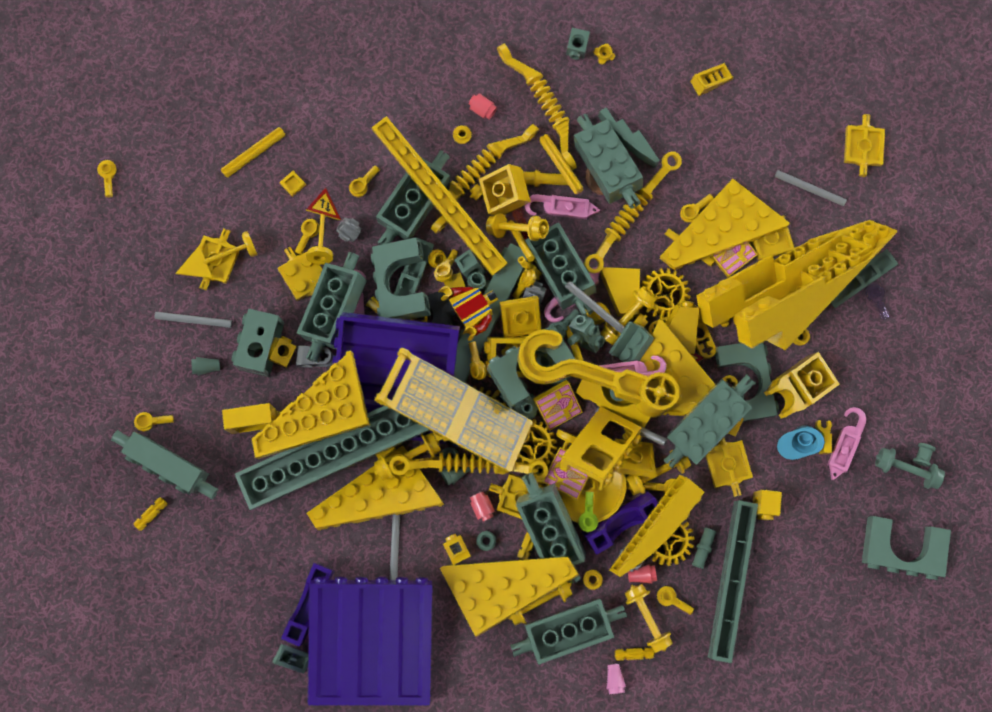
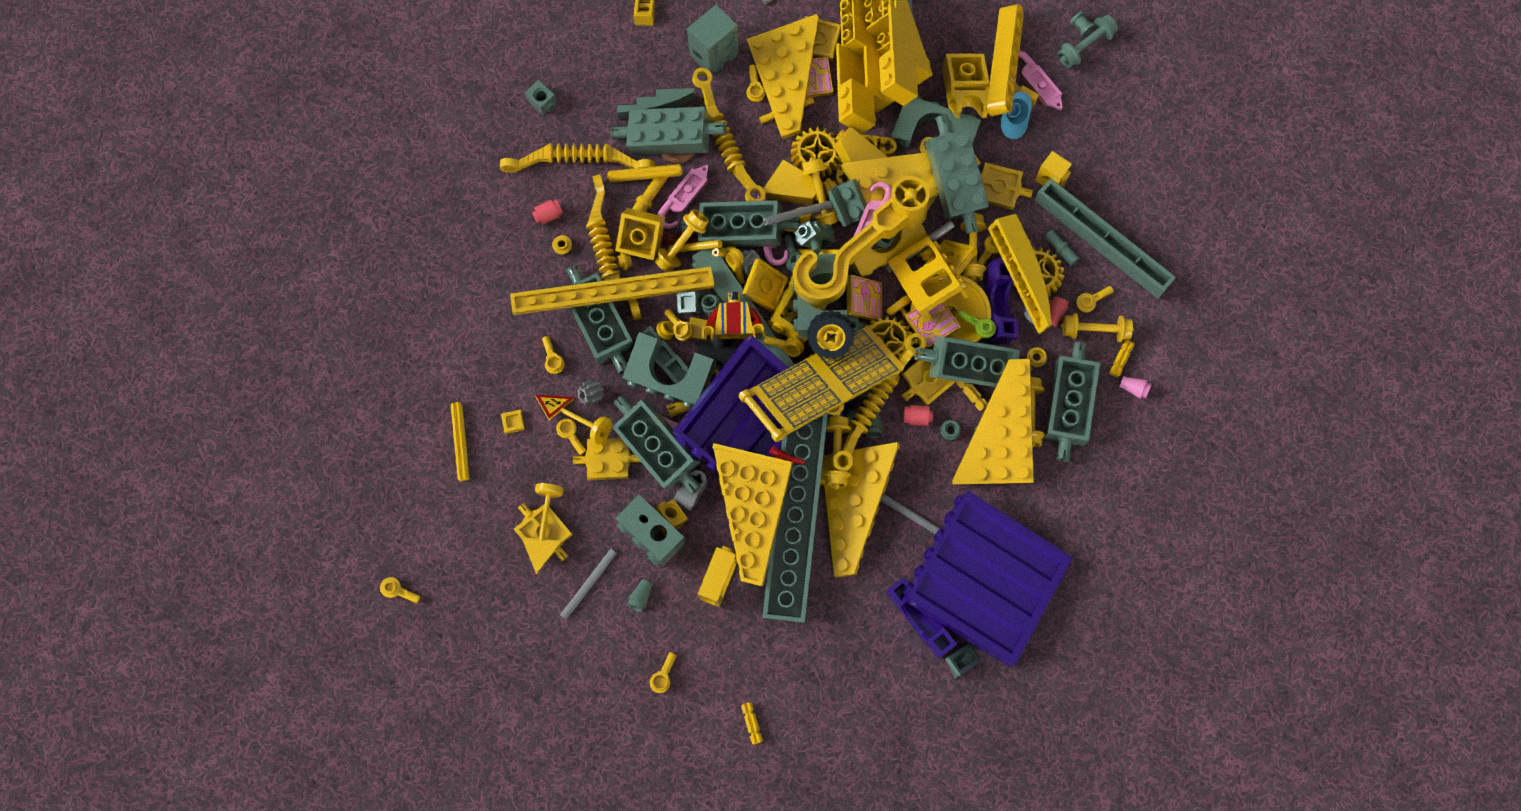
camera: 55 degrees left, 5 degrees down
(164, 462) = (713, 679): sand green brick -> none
(371, 413) = (780, 454): none -> red helmet
(456, 548) = (944, 459): yellow window -> none
(496, 385) = (830, 323): none -> black wheel
(606, 48) = (560, 77): yellow plate -> none
(709, 150) = (713, 40): none -> sand green piece
(844, 406) = (1005, 60): none -> yellow beam
(930, 562) = (1143, 106): sand green arch -> none

